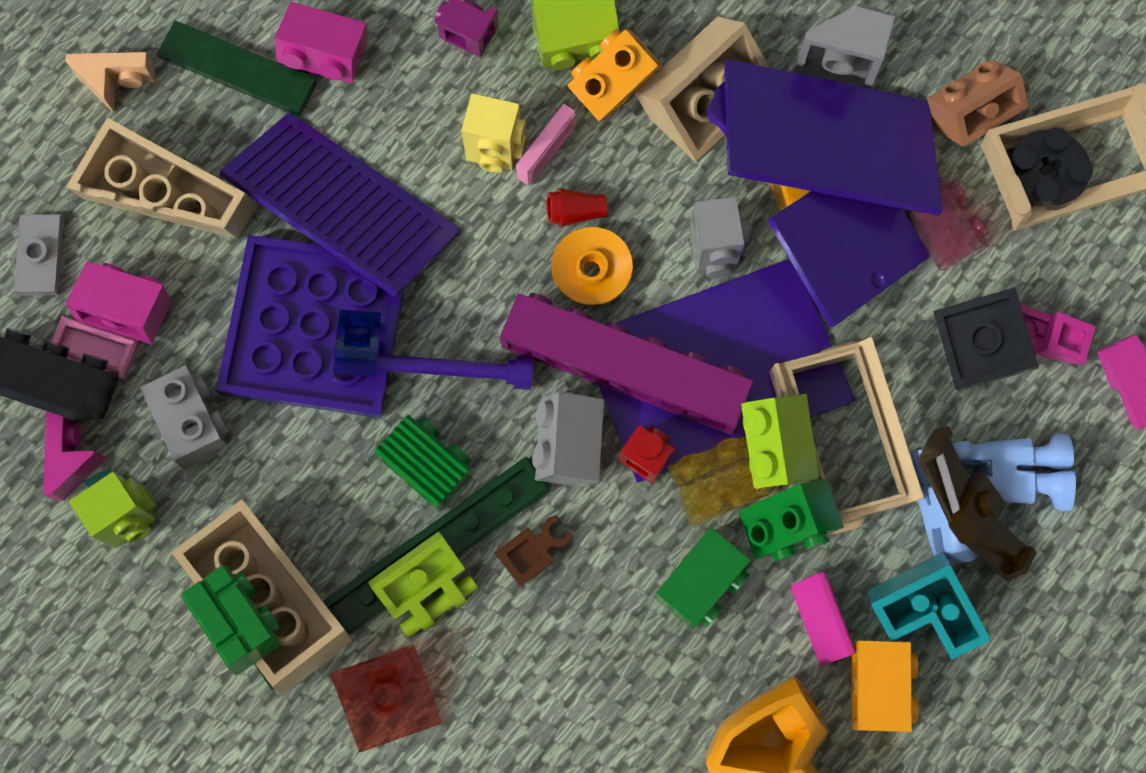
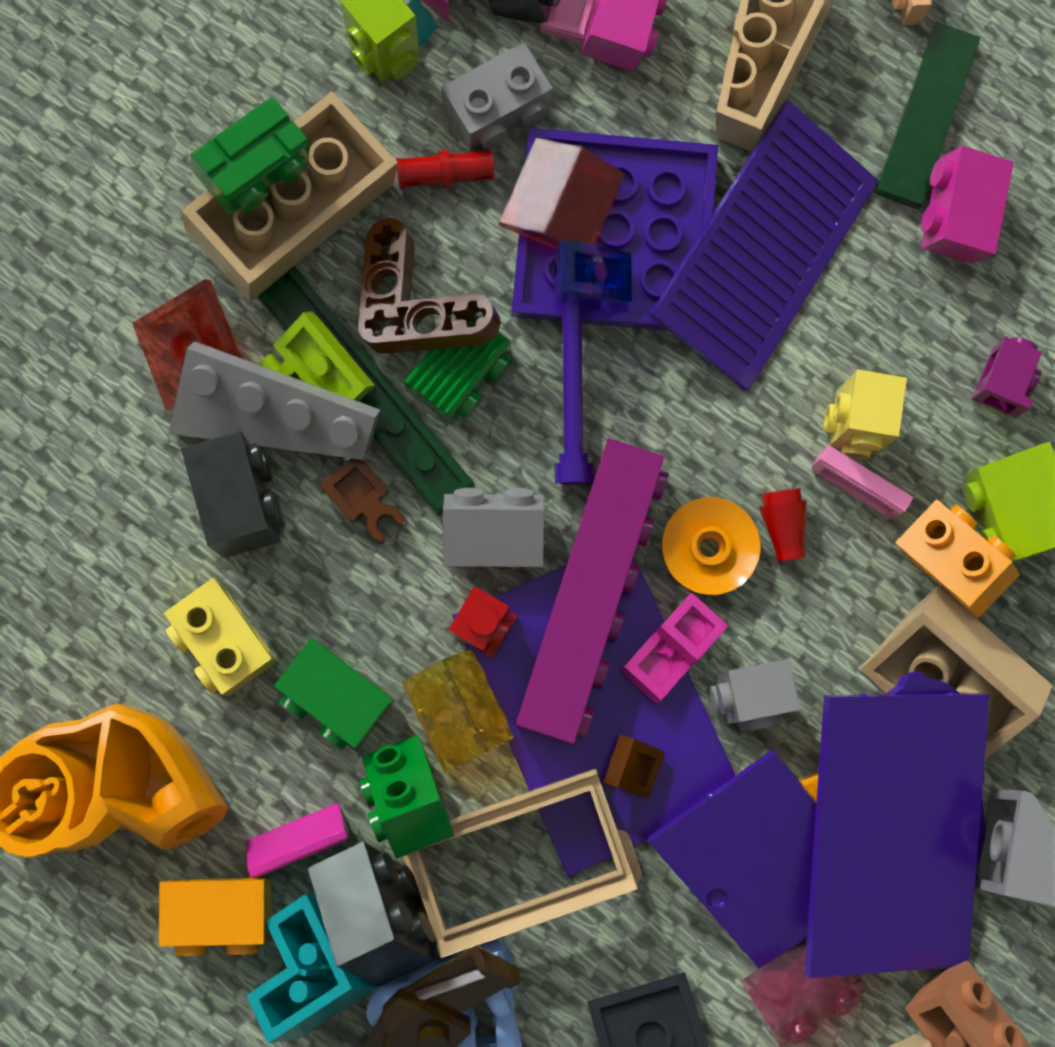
camera: 80 degrees right, 5 degrees up
(245, 464) = (445, 169): none -> red pin
(282, 365) = (561, 194): none -> clear red slope
(369, 511) = (408, 313): none -> reddish brown beam
(449, 634) = (232, 395): none -> light grey wing
(528, 655) = (232, 494): none -> pearl dark grey brick
(649, 677) = (219, 638): none -> light yellow brick
(674, 302) = (674, 648): none -> dark pink slope
(770, 338) = (634, 766): none -> reddish brown plate
(780, 441) = (496, 777): lime brick -> none
(887, 549) = (371, 914): none -> pearl dark grey brick

